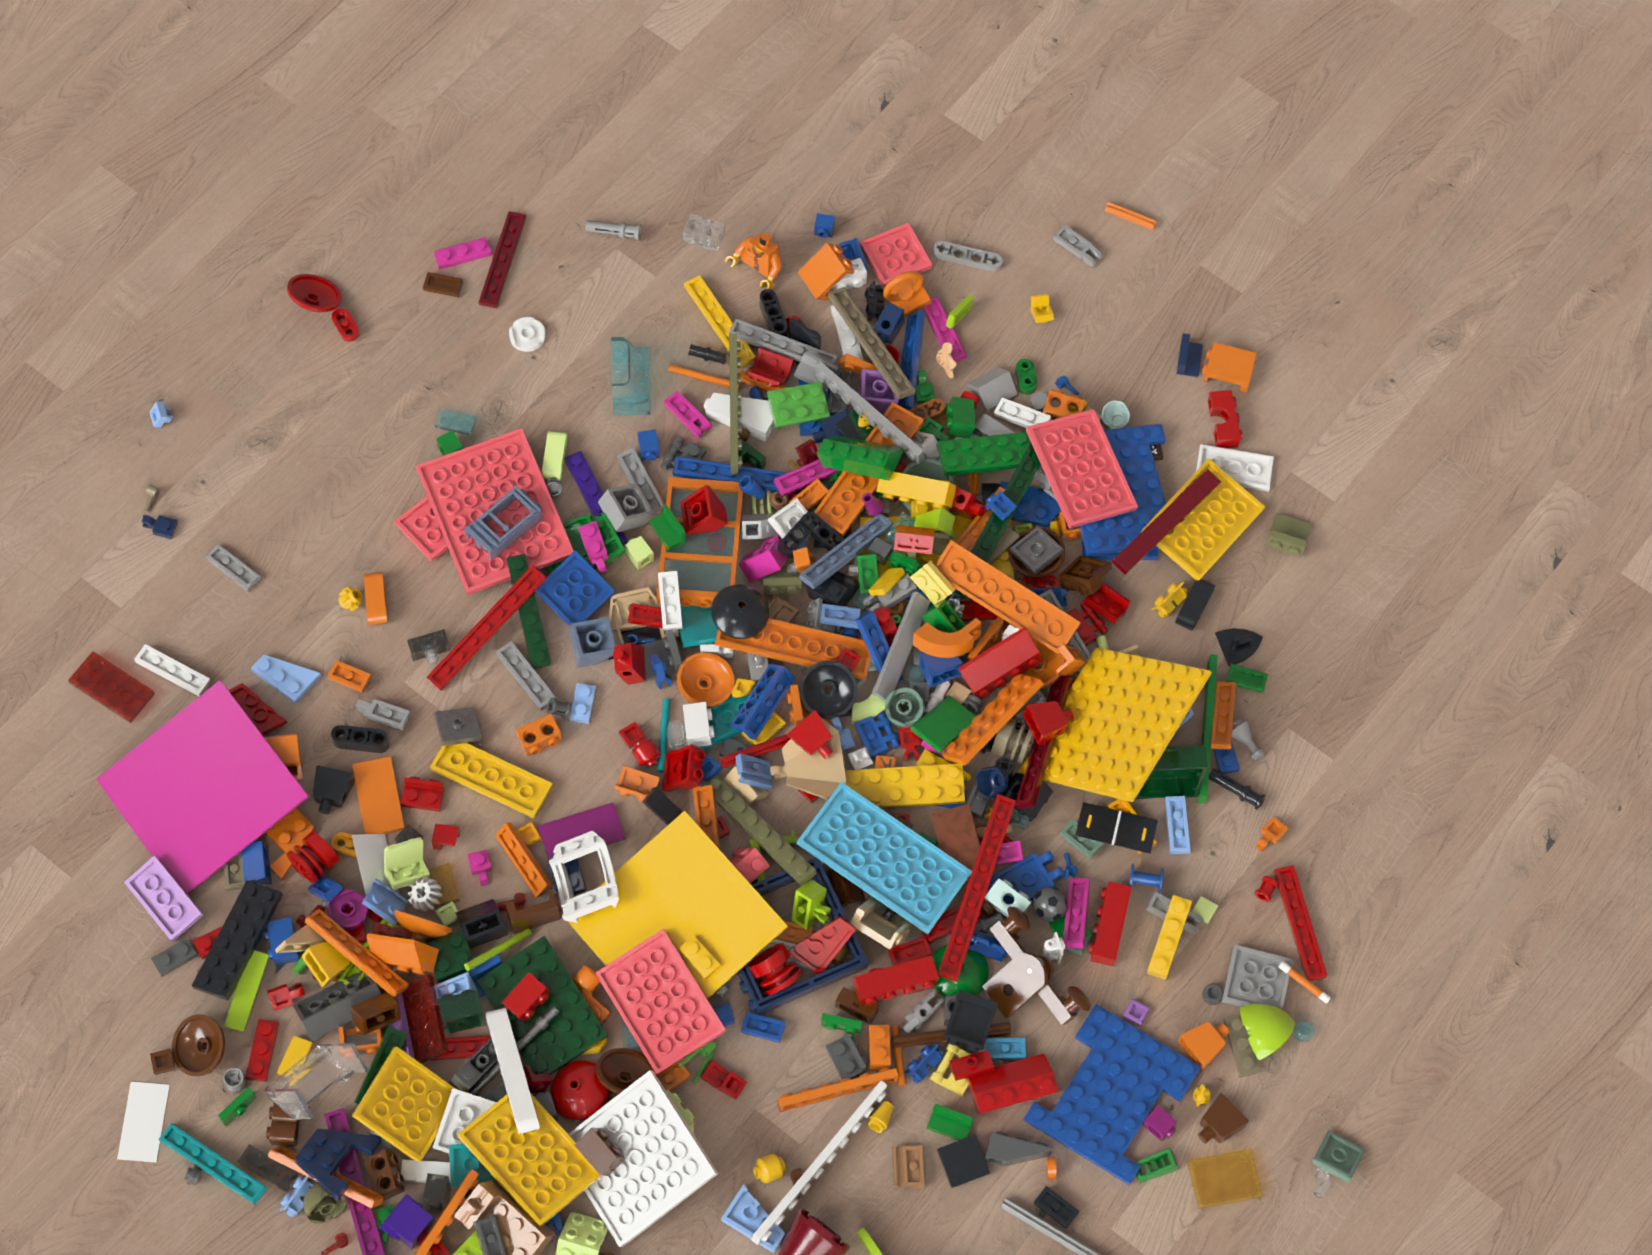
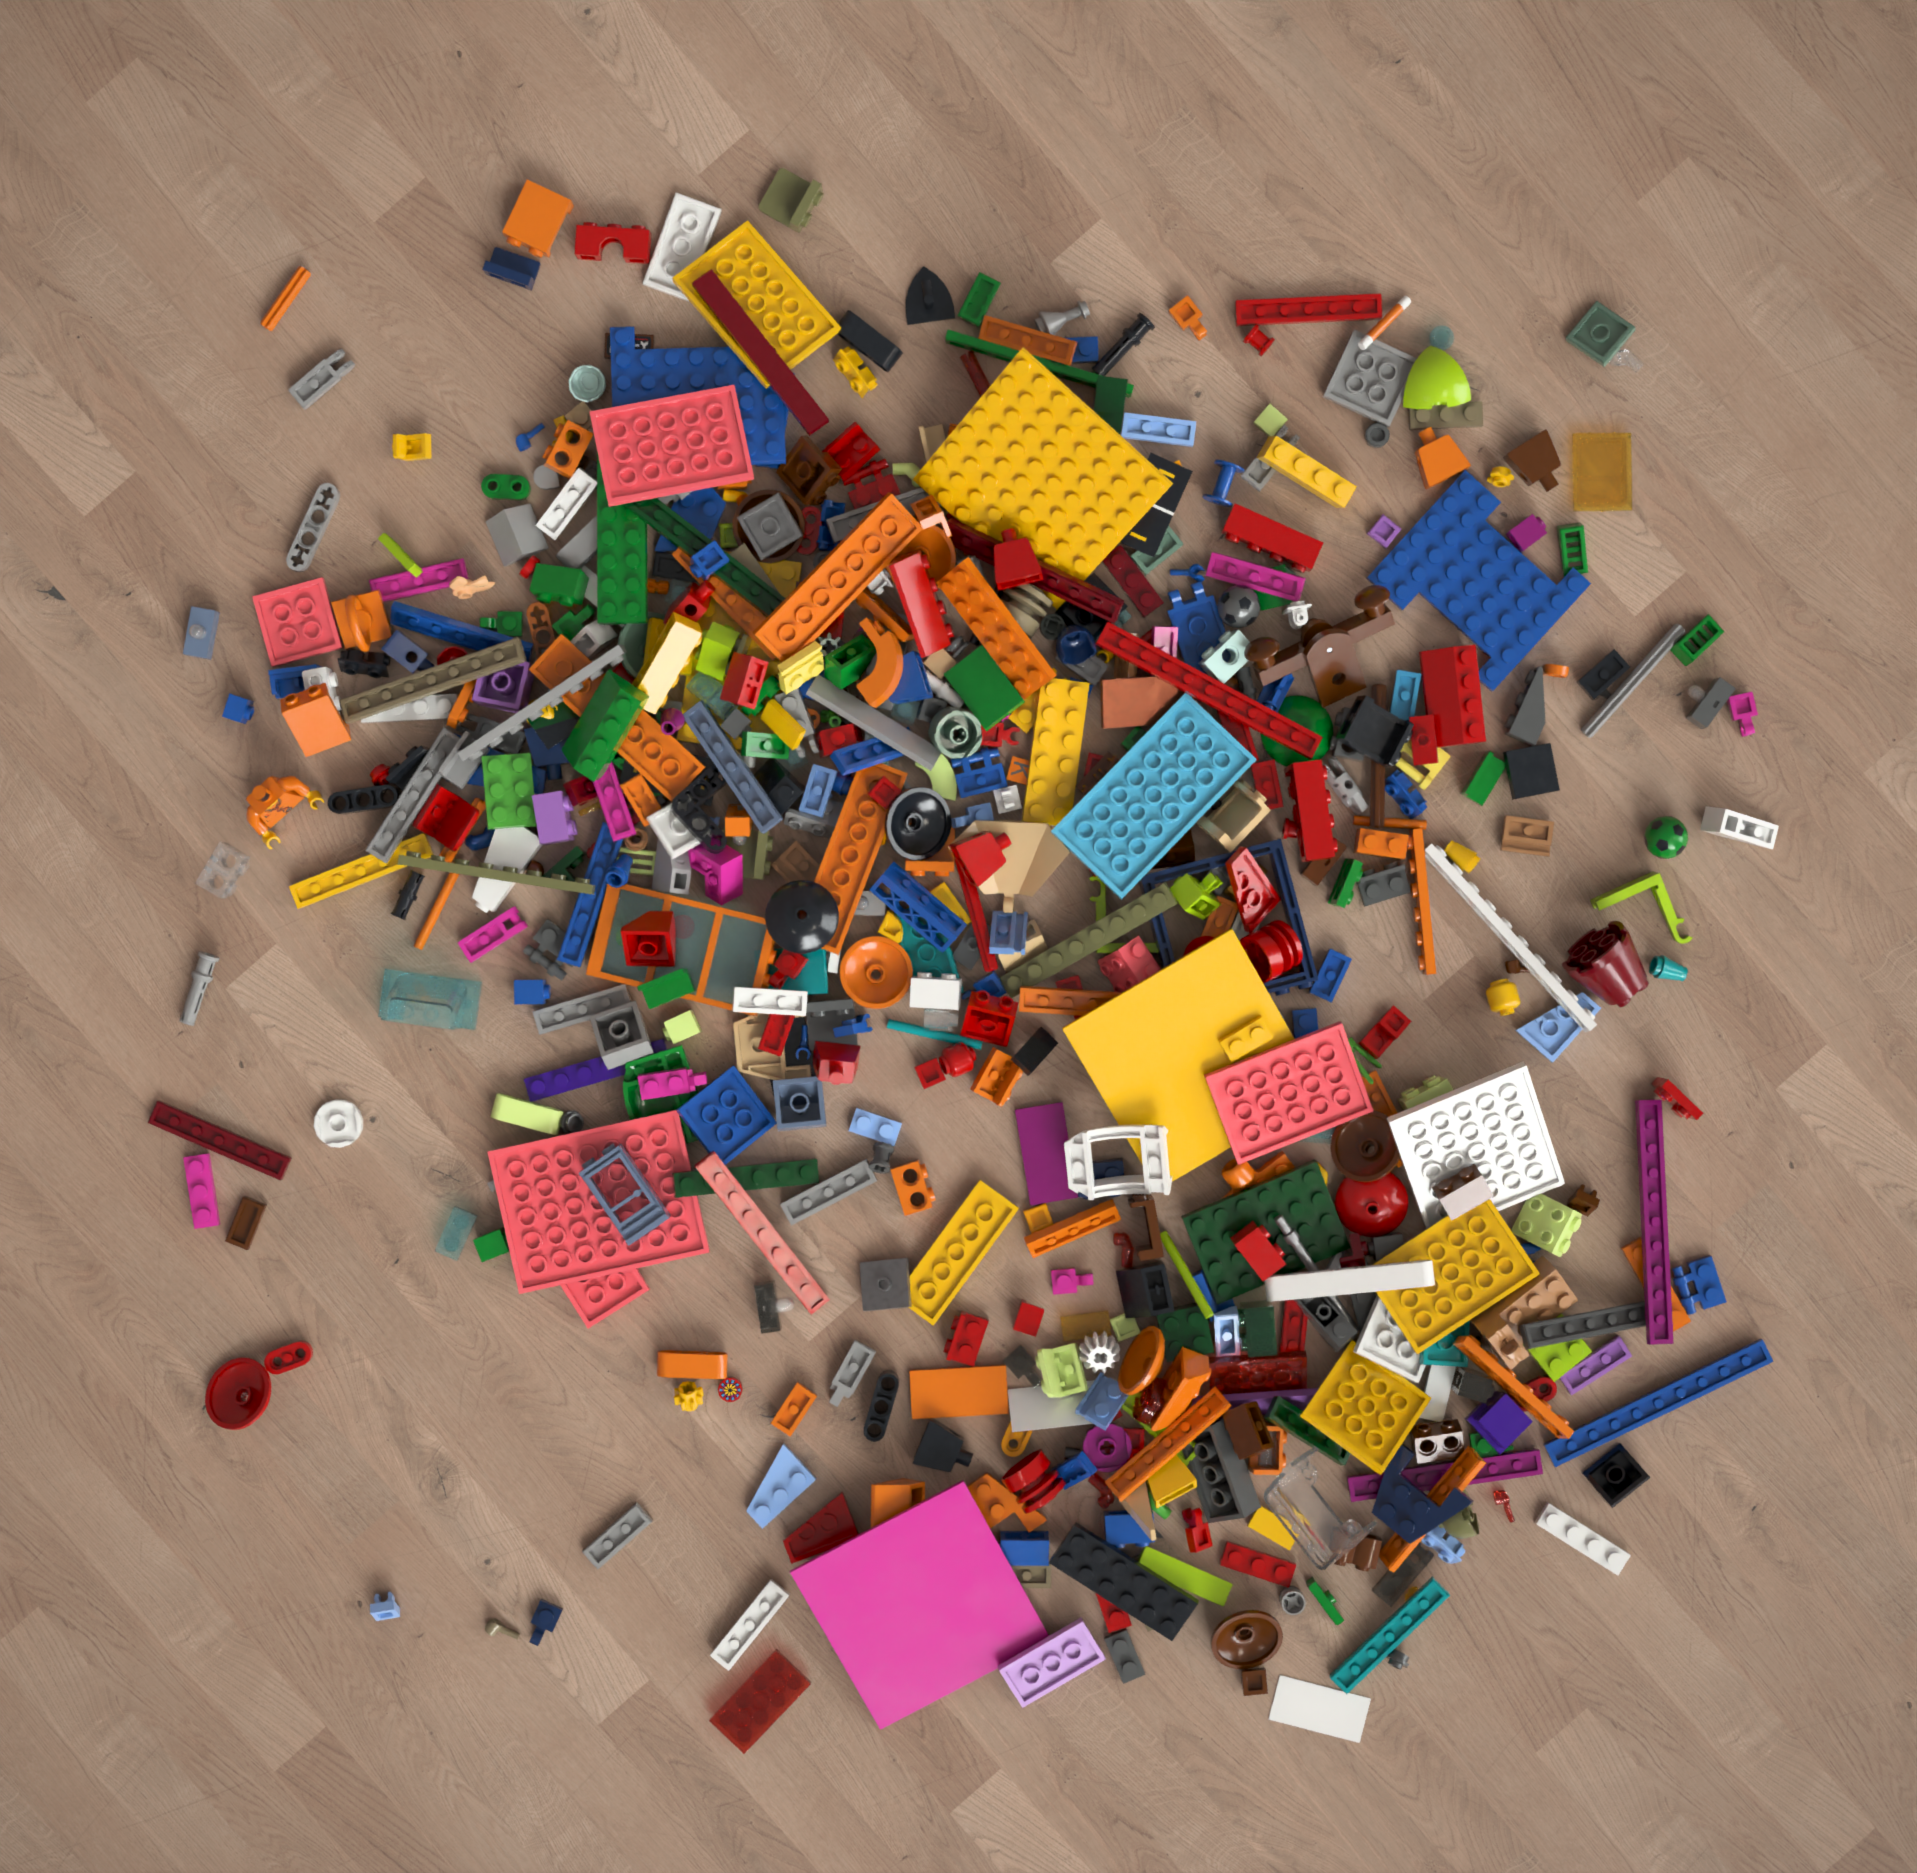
camera: 80 degrees left, 25 degrees up
(359, 630) = (730, 1389): none -> tile
(699, 616) = (789, 965): none -> red plate
(783, 437) = (554, 818): none -> medium lavender brick
(875, 195) = (201, 633): none -> sand blue piece
(1052, 825) = (1132, 581): none -> dark red plate

